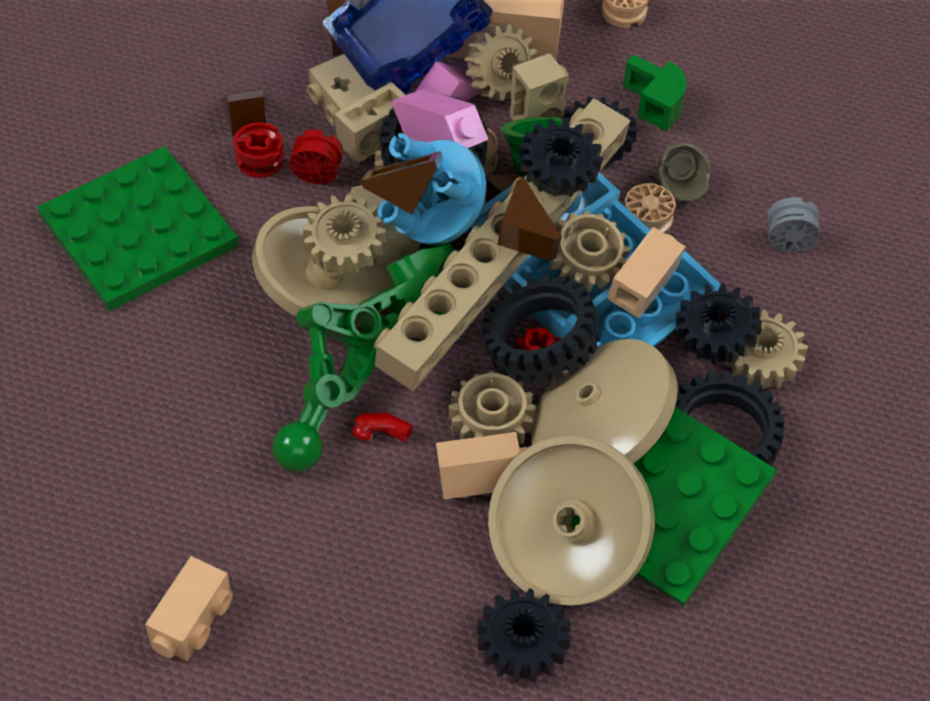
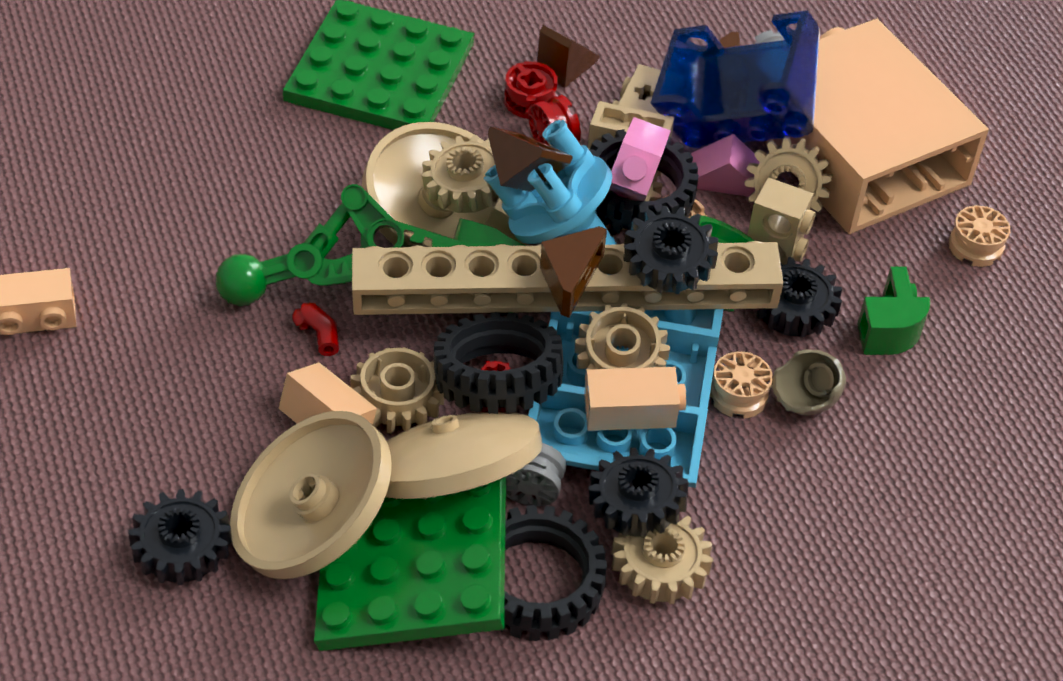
camera: 50 degrees right, 5 degrees down
(793, 222) = (835, 500): light grey wheel -> none

